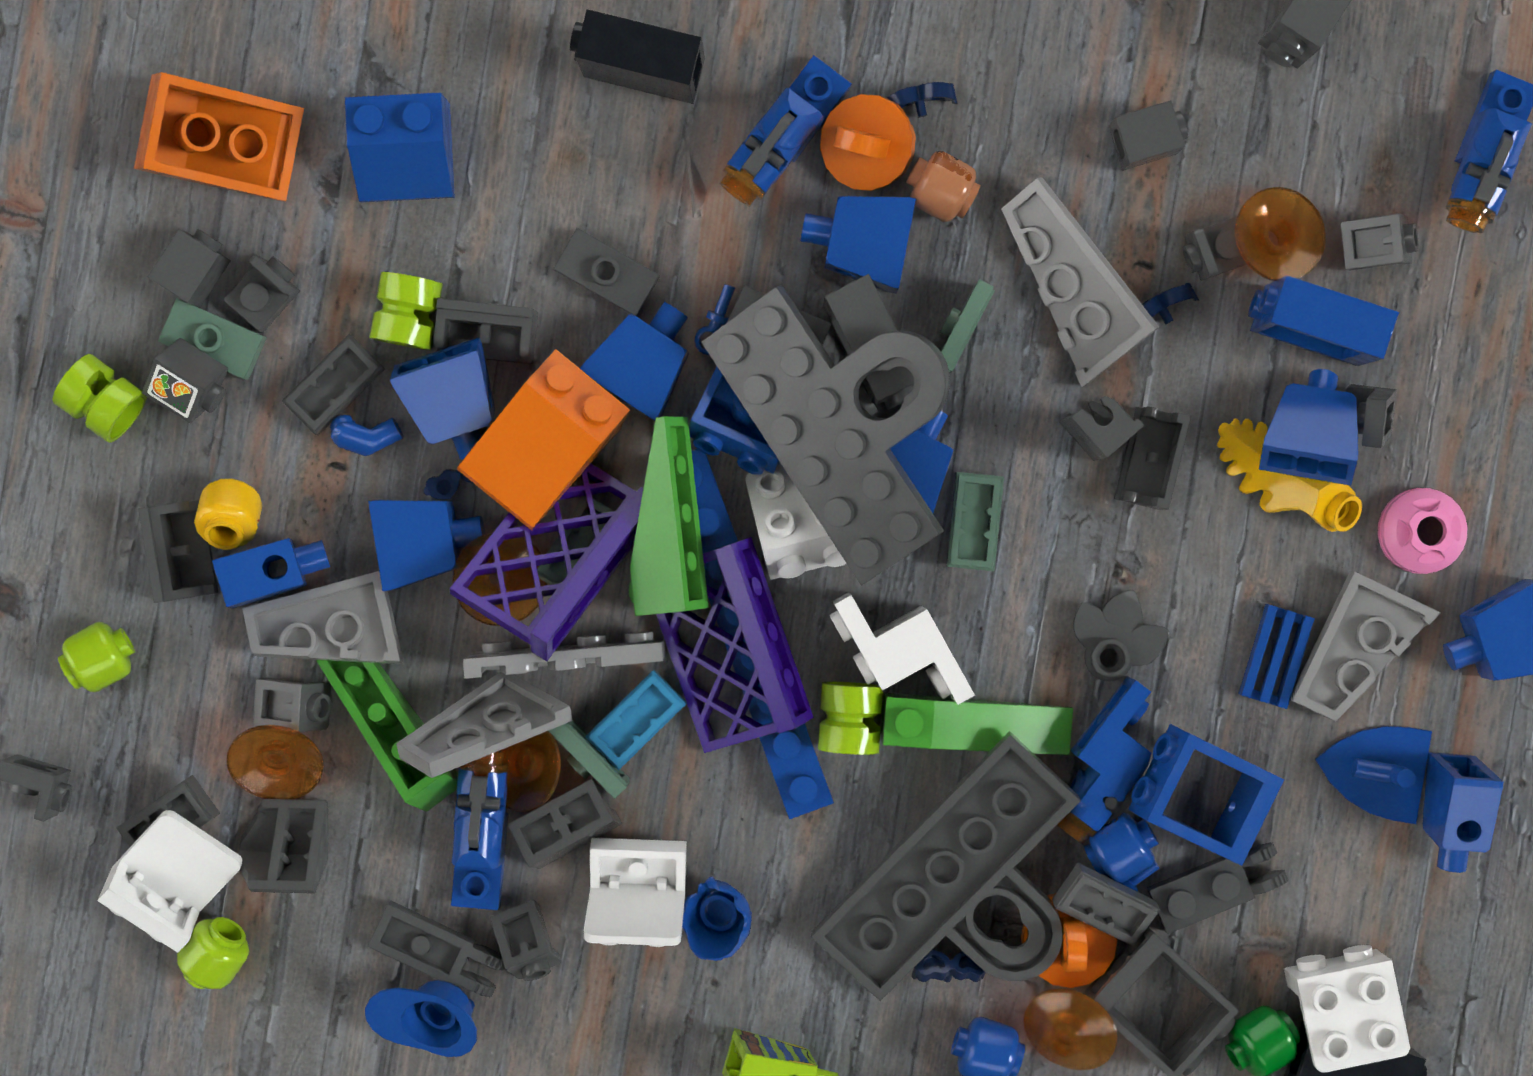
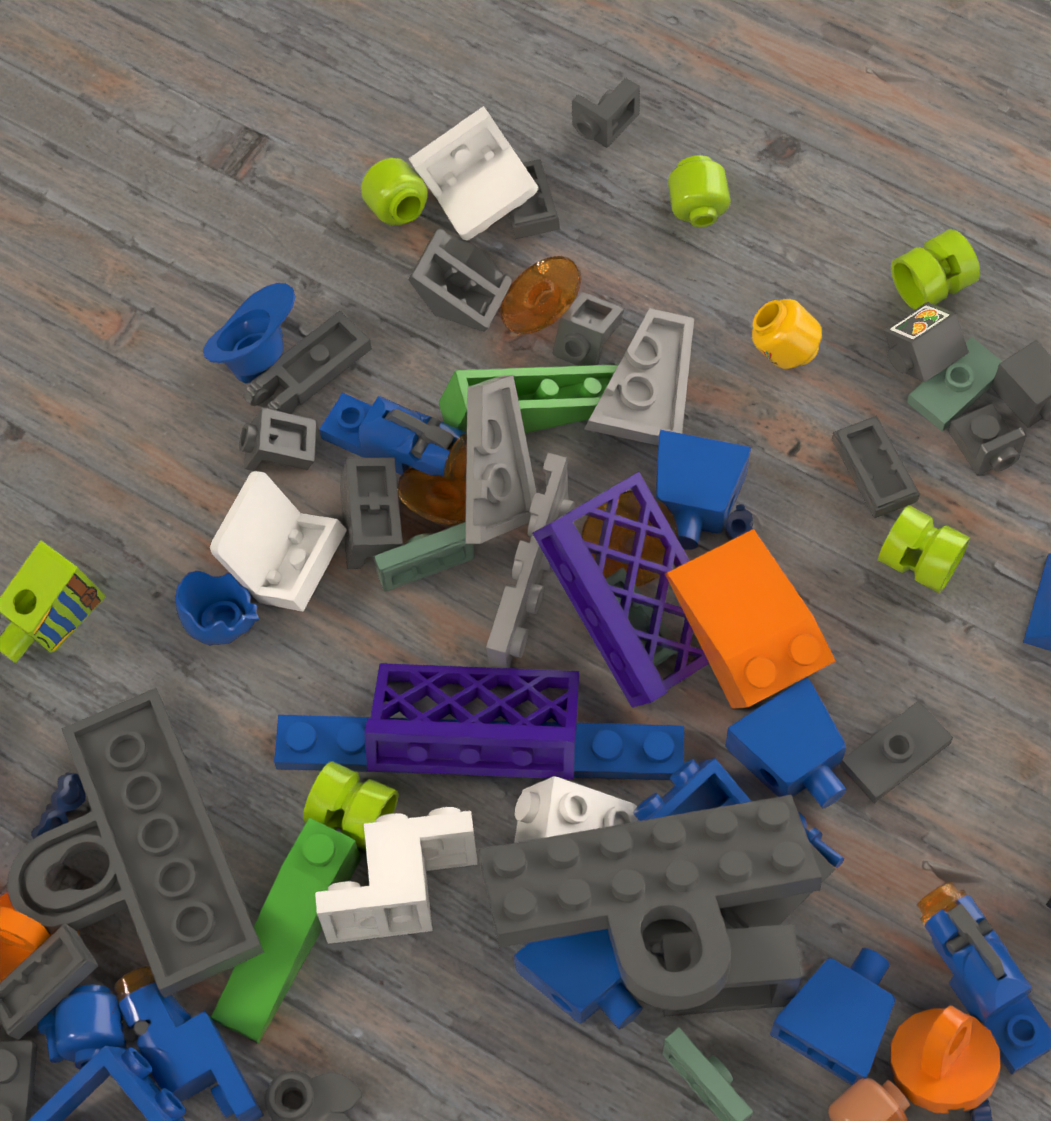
camera: 125 degrees right, 25 degrees down
(175, 552) = (762, 276): dark grey hinge -> none
(246, 576) = (720, 342): blue torso -> none
(362, 440) = (811, 473): blue arm -> none
(448, 394) = (830, 554): blue torso -> none
(504, 330) = (878, 616): dark grey hinge -> none
(636, 719) = (440, 612): dark azure plate -> none
(668, 545) = (606, 694): bright green slope -> none
(975, 521) = (495, 1014): sand green plate -> none

